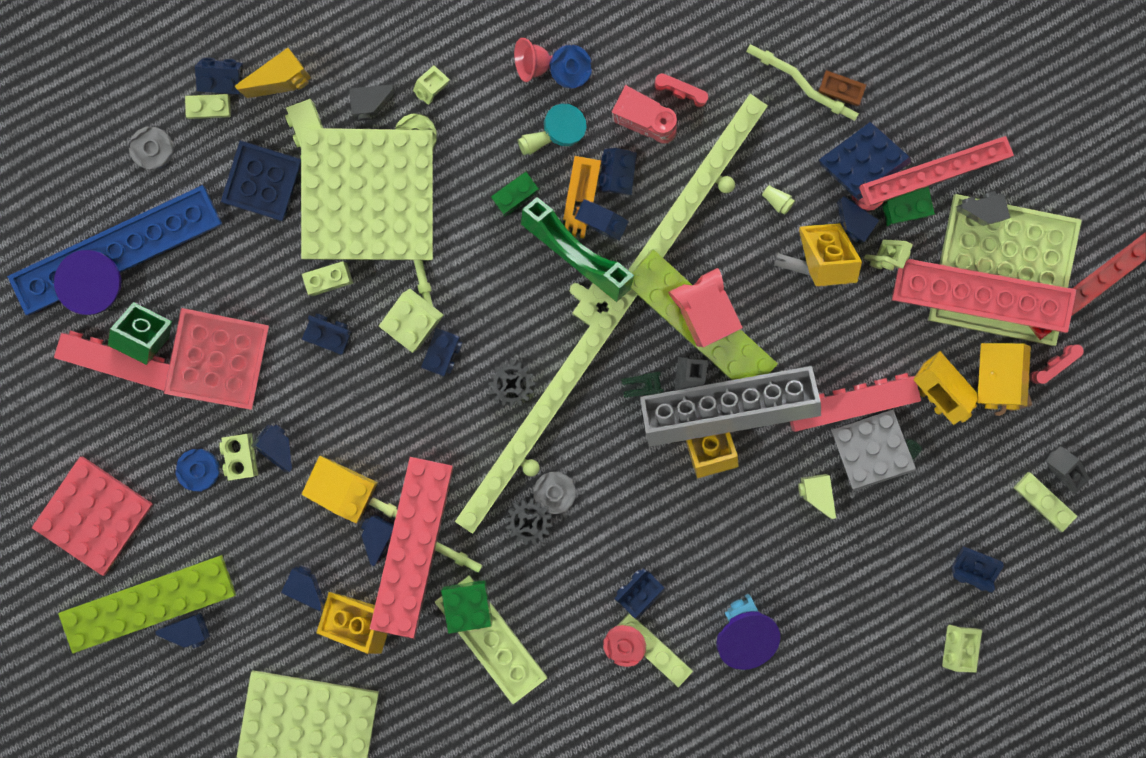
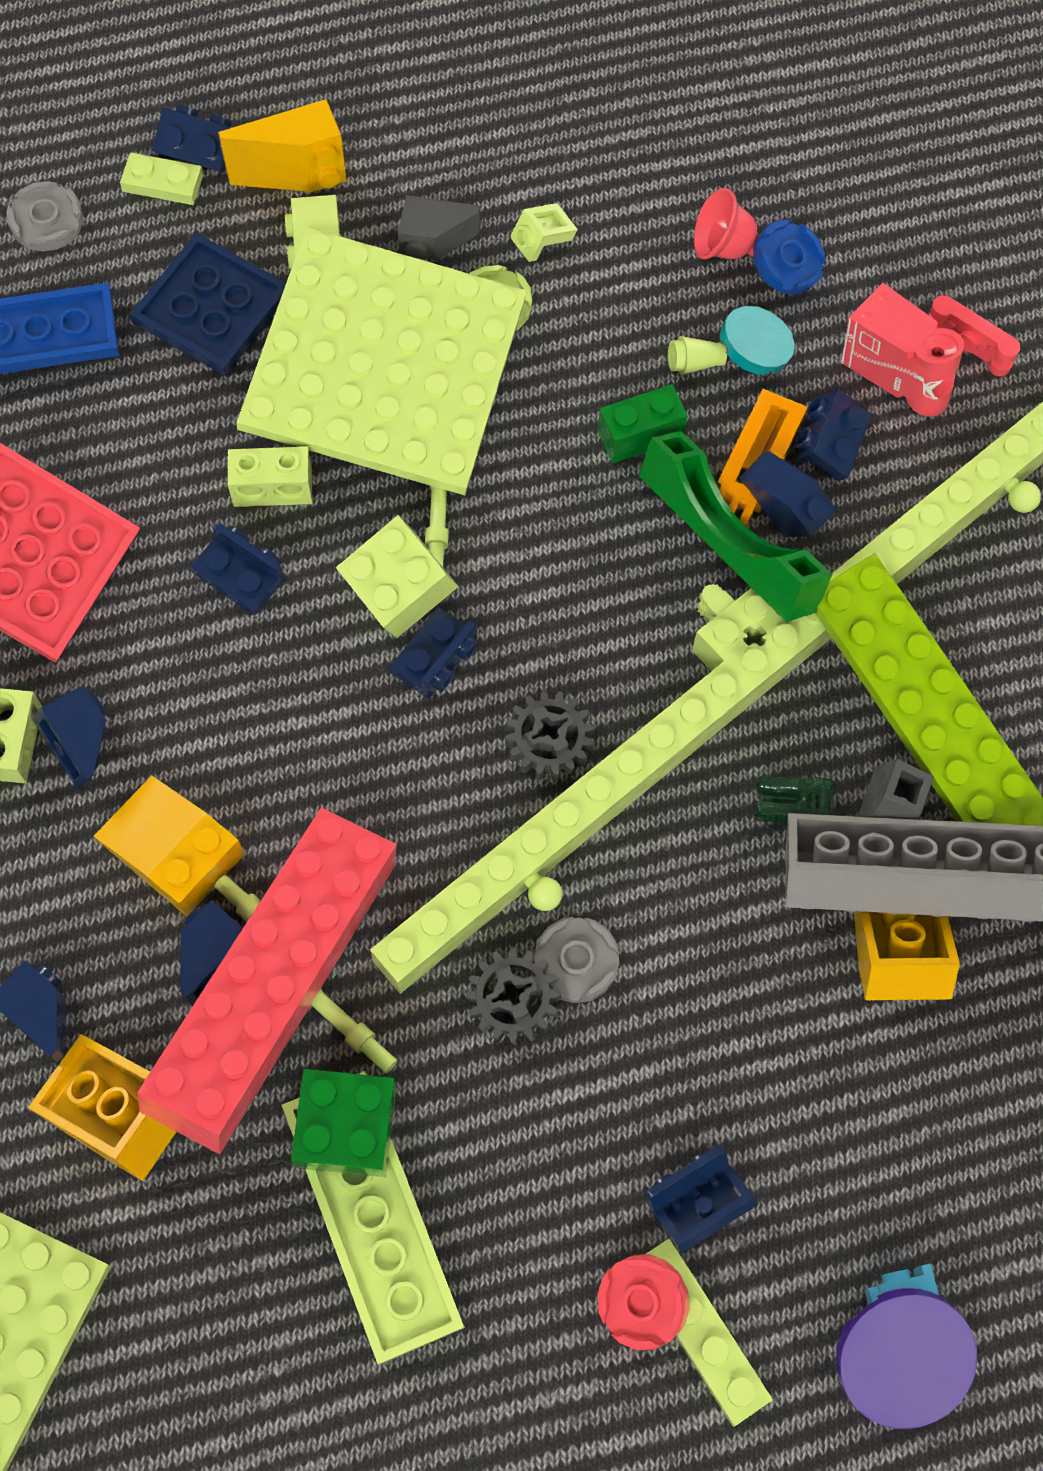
camera: 20 degrees right, 20 degrees down
(706, 309) = (953, 675): coral piece -> none

